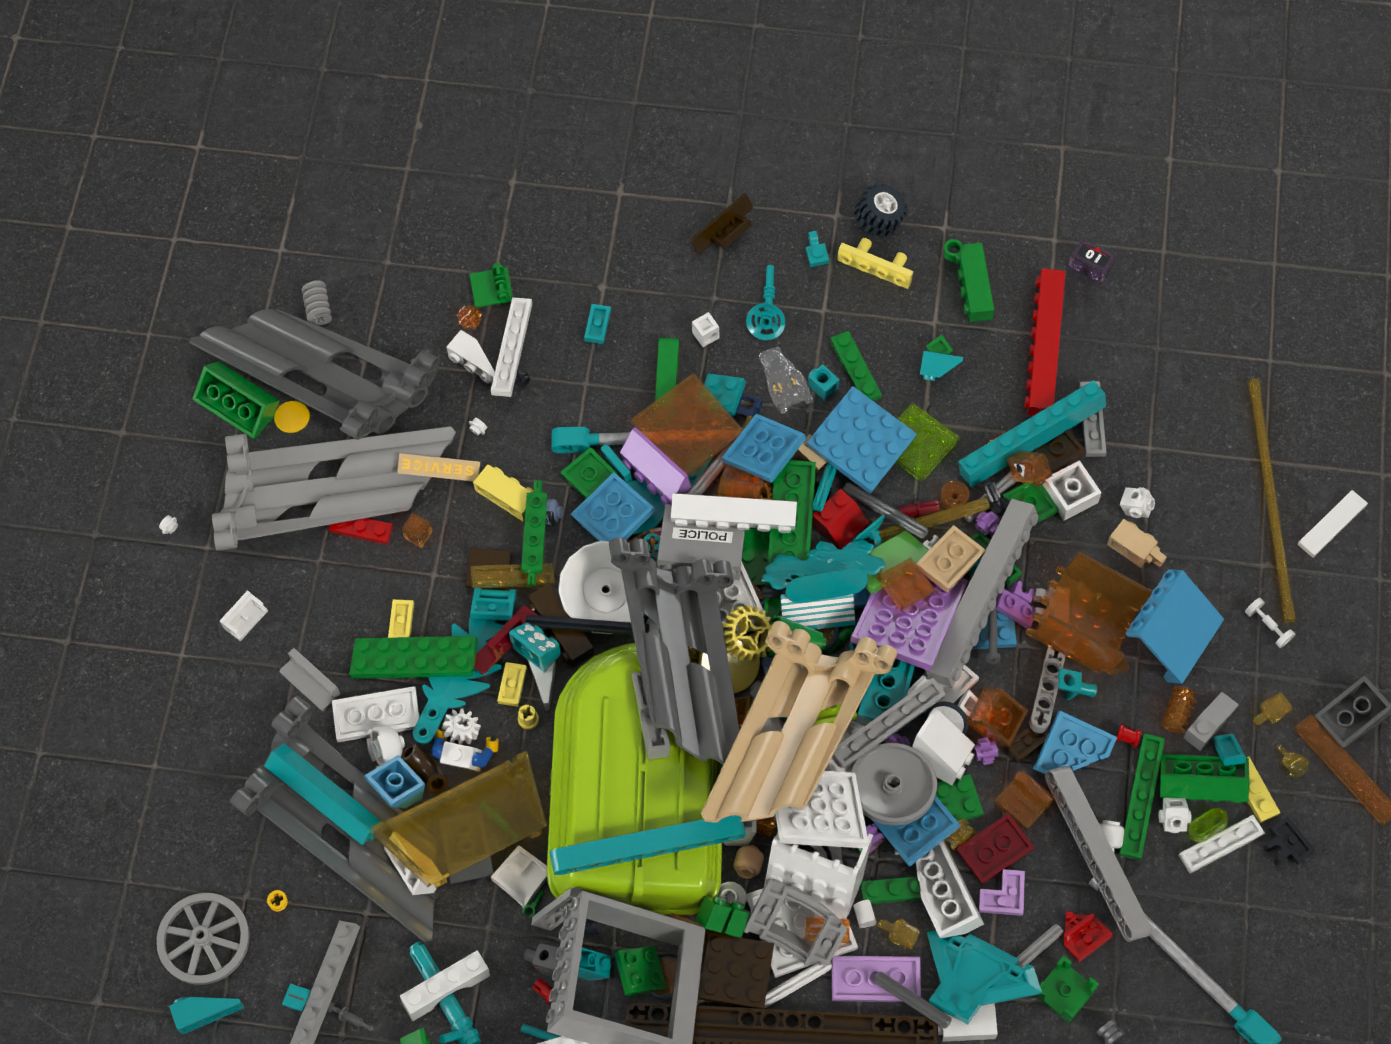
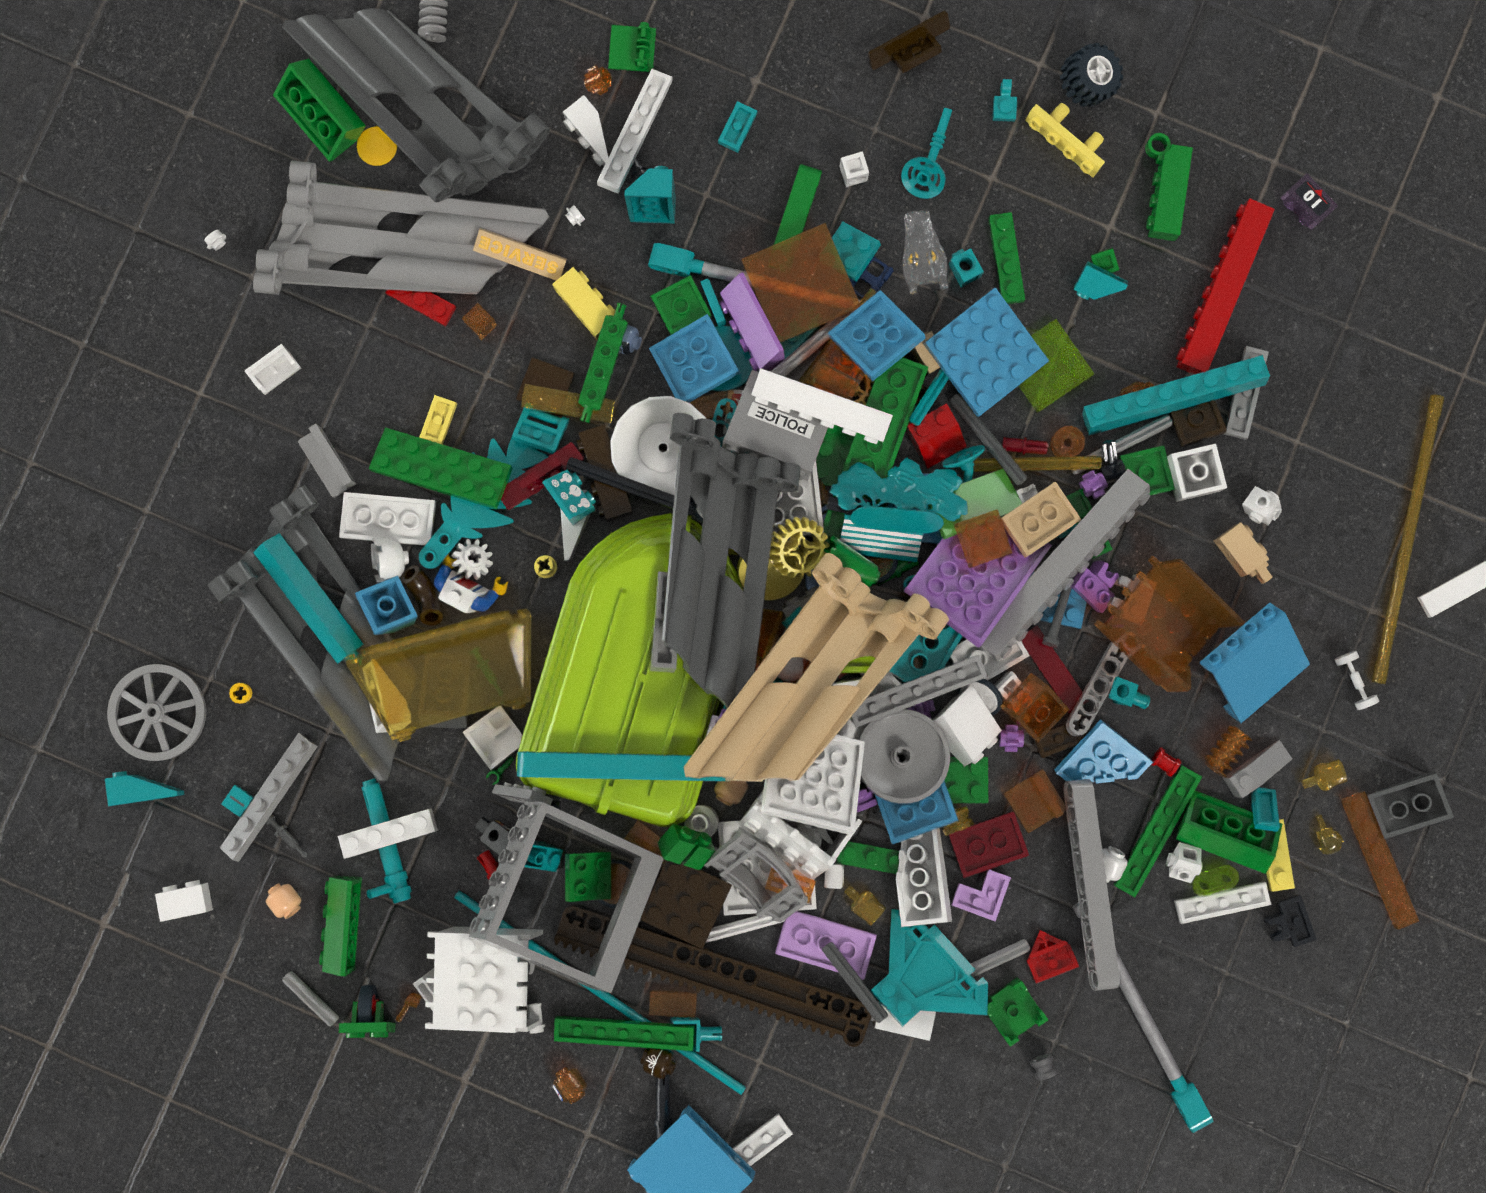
camera: 10 degrees right, 20 degrees up
(512, 684) = (537, 525): light yellow plate -> none
(541, 389) = (652, 197): none -> teal slope
(994, 677) = (1052, 668): none -> dark red tile
(1029, 467) = (1159, 437): clear orange brick -> none

